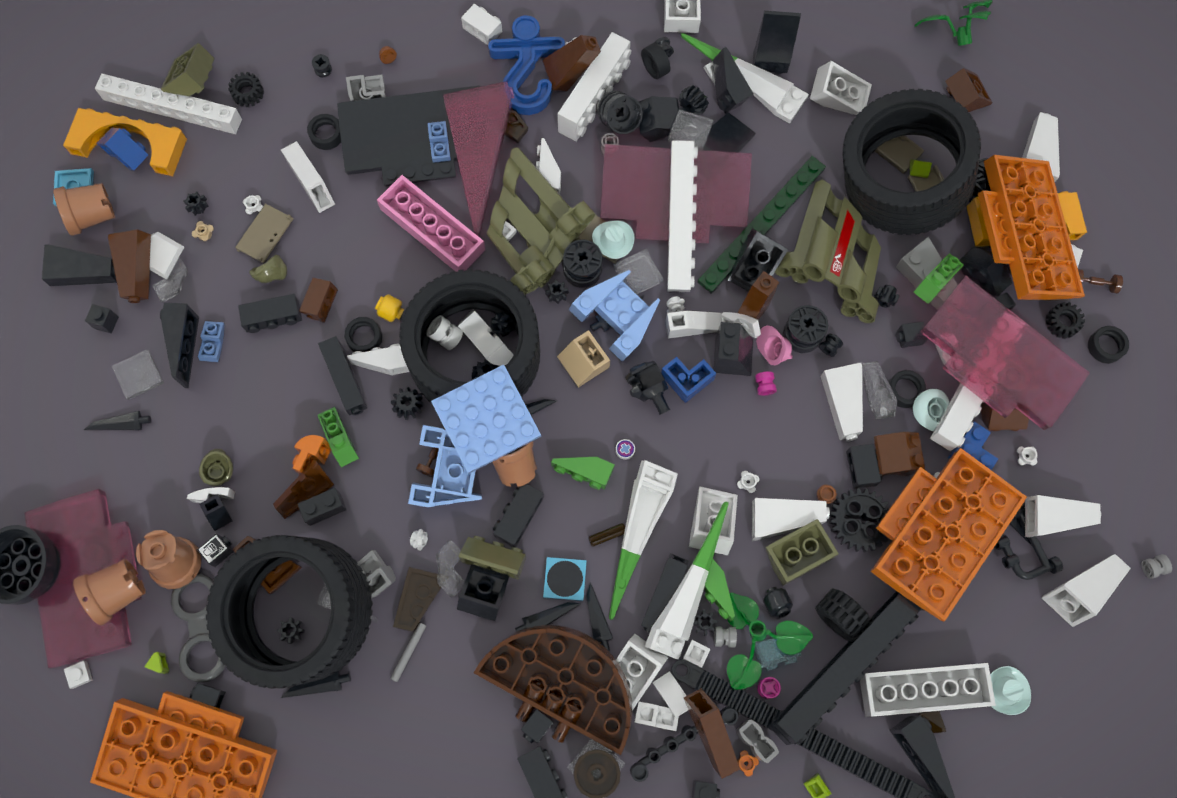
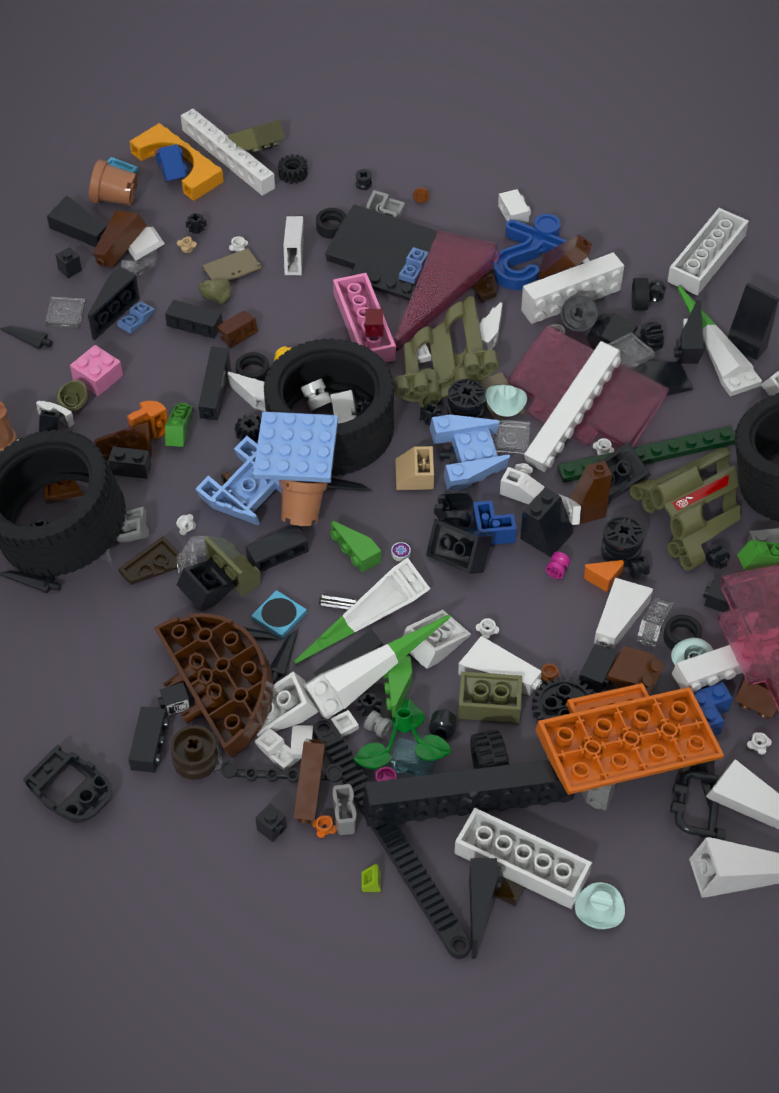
camera: 35 degrees right, 20 degrees down
(217, 424) = (96, 370): none -> bright pink brick
(408, 652) = (116, 596): light grey bar -> none
(451, 229) = (374, 322): none -> dark red brick
(677, 419) = (459, 546): none -> black slope
(723, 234) = (603, 446): none -> white plate
(773, 345) = (586, 542): bright pink piece -> none
(809, 370) = (603, 573): none -> orange slope

